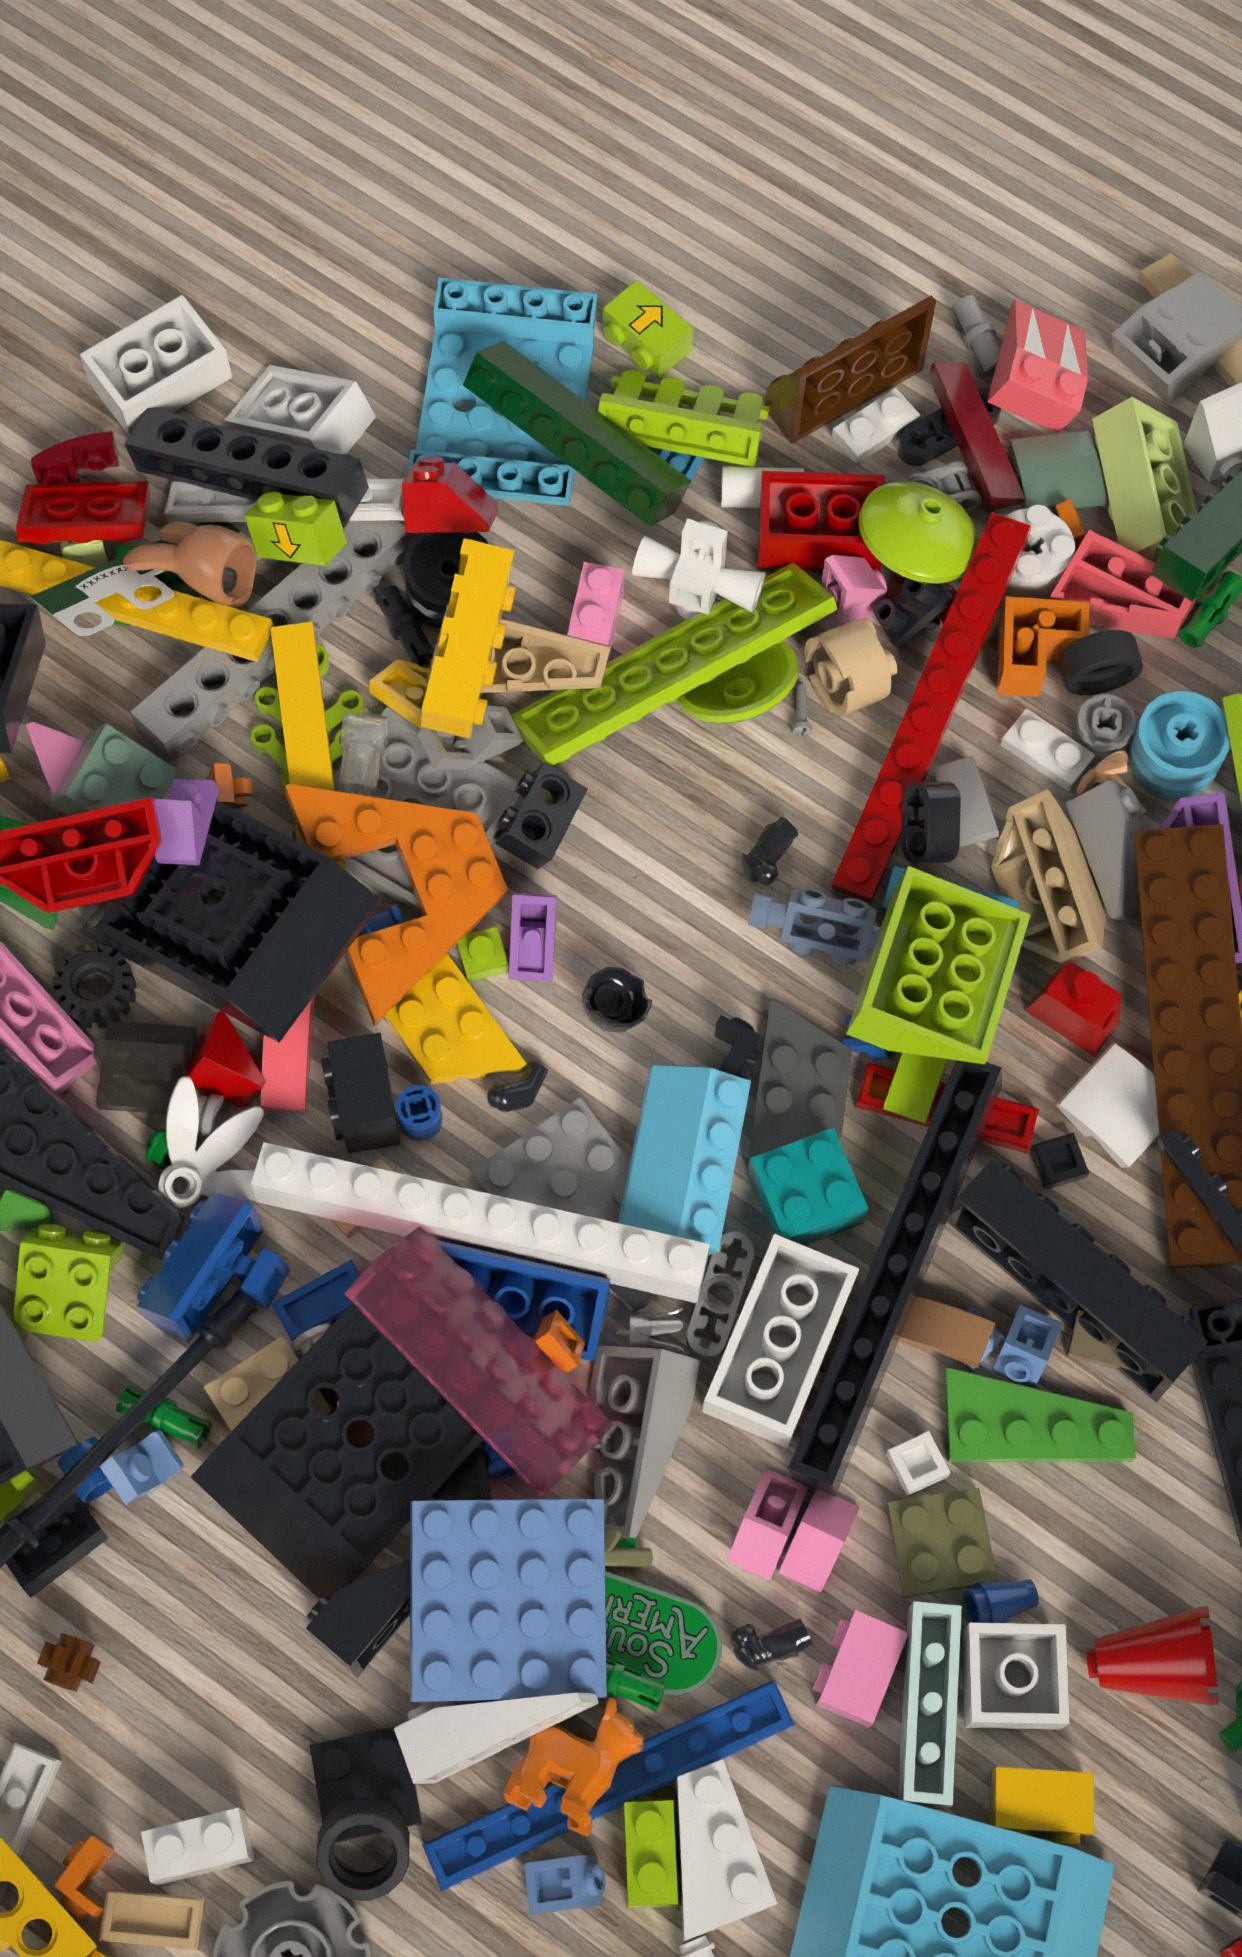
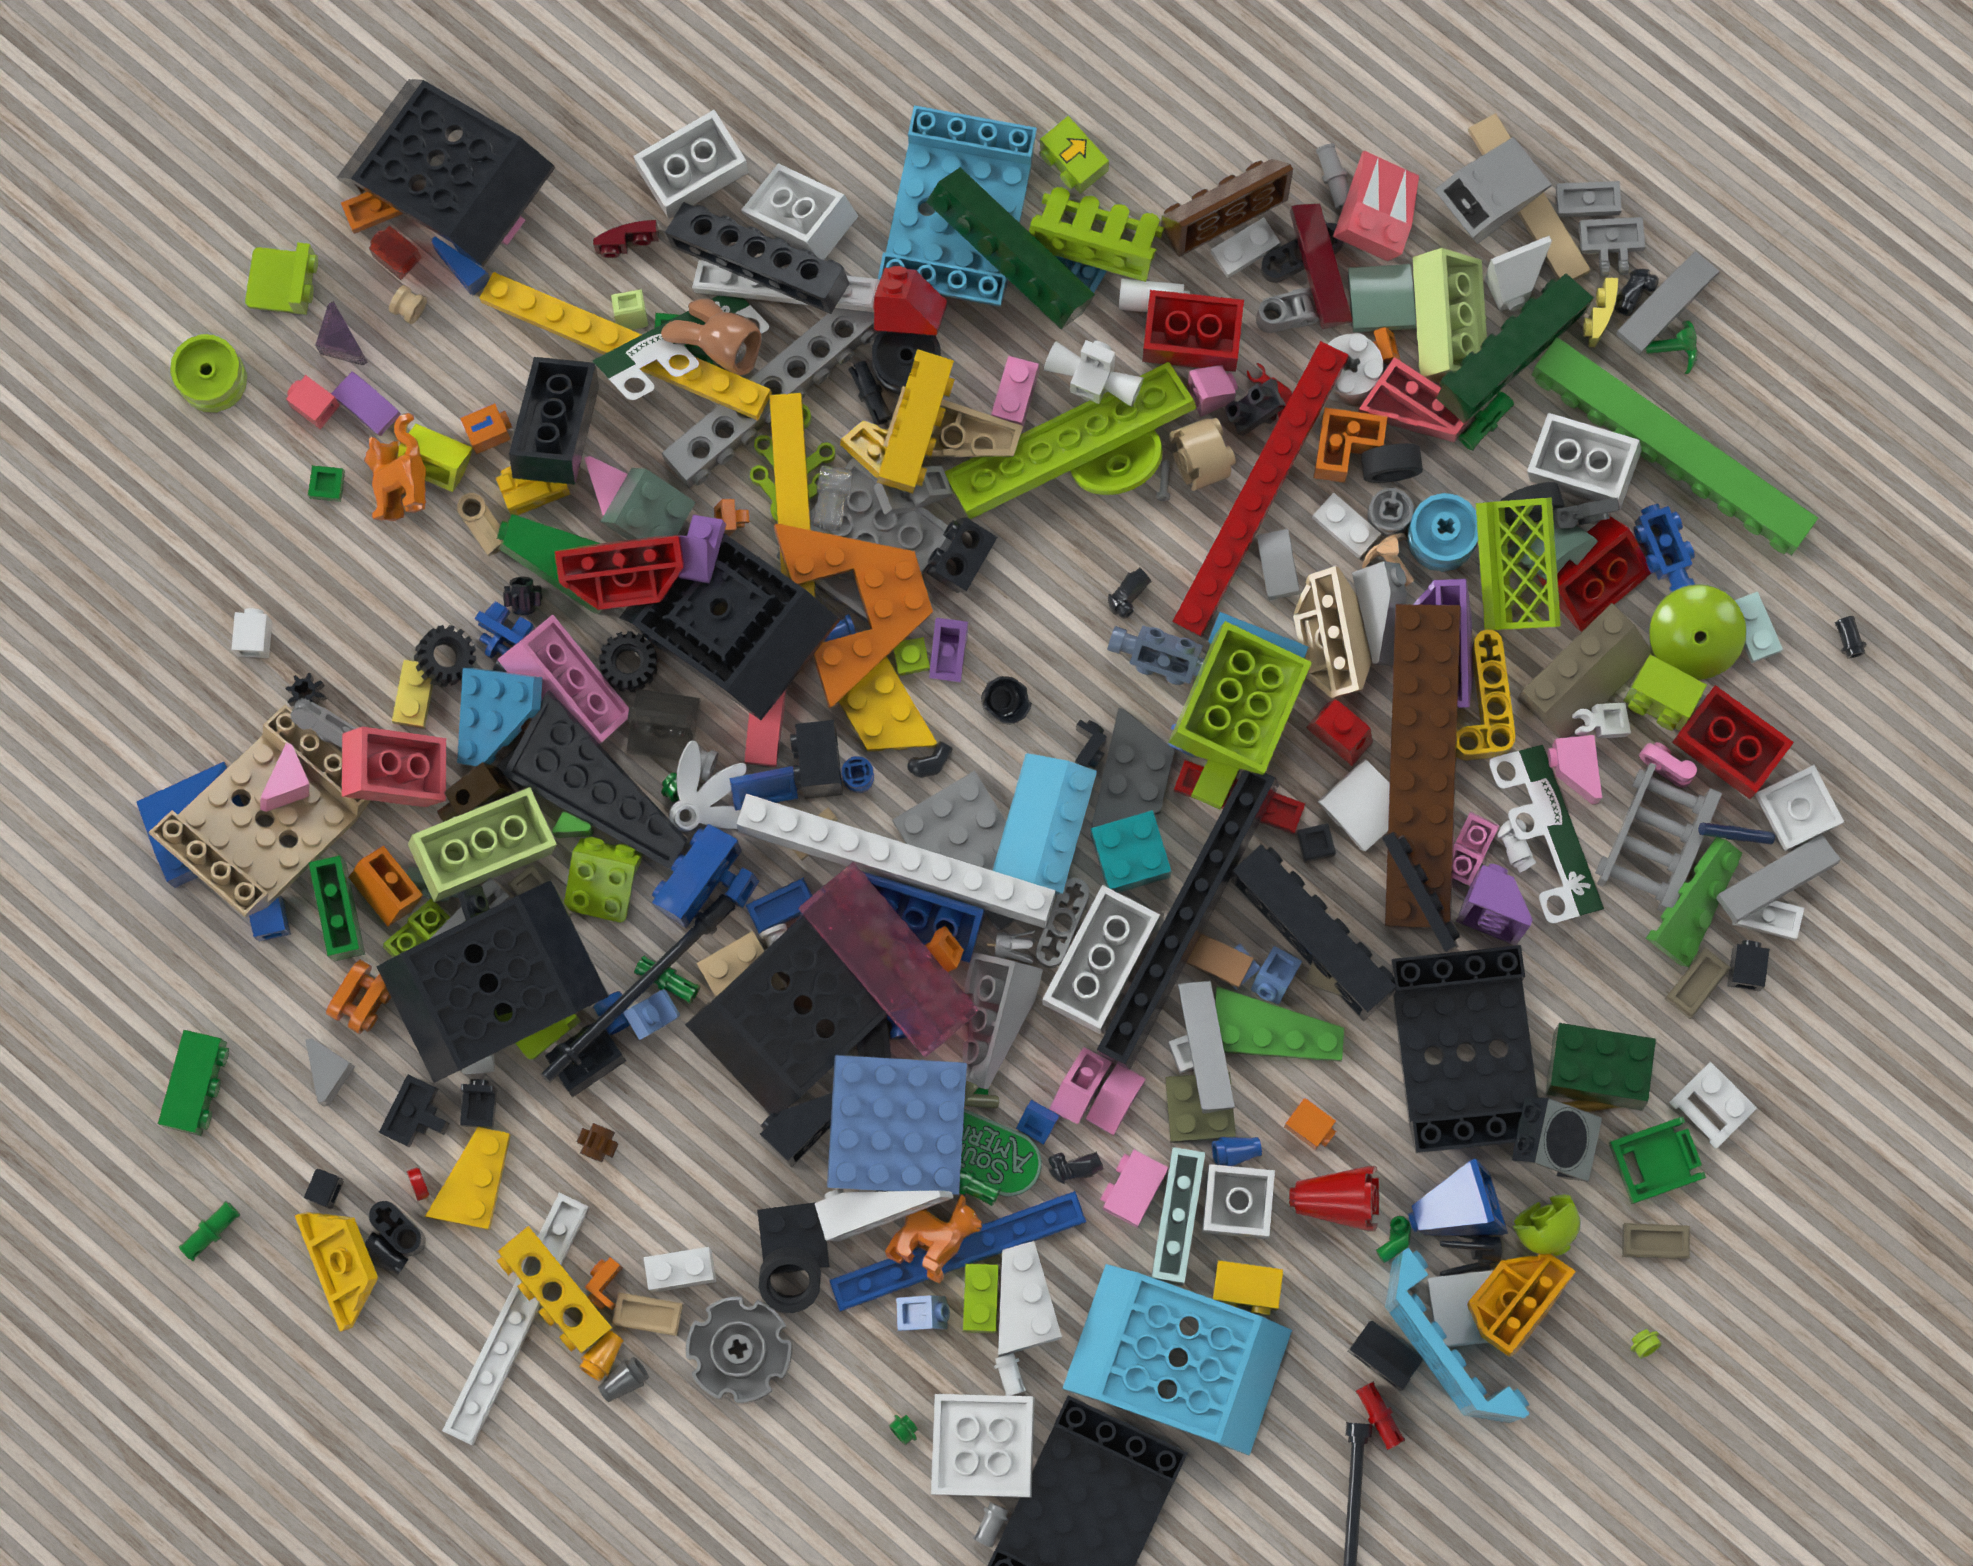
camera: 10 degrees right, 10 degrees up
(83, 512) = (631, 284): red plate -> none
(224, 1064) = (719, 728): red slope -> none
(296, 528) = (792, 316): lime brick -> none
(303, 1131) = (771, 785): none -> blue tile
(710, 1581) = (1037, 1122): none -> blue plate
(918, 532) = (1254, 359): lime dish -> none
(931, 822) = (1249, 581): black beam -> none
(943, 1453) = (1206, 1046): none -> light grey slope
(1104, 1555) = (1311, 1124): none -> orange brick

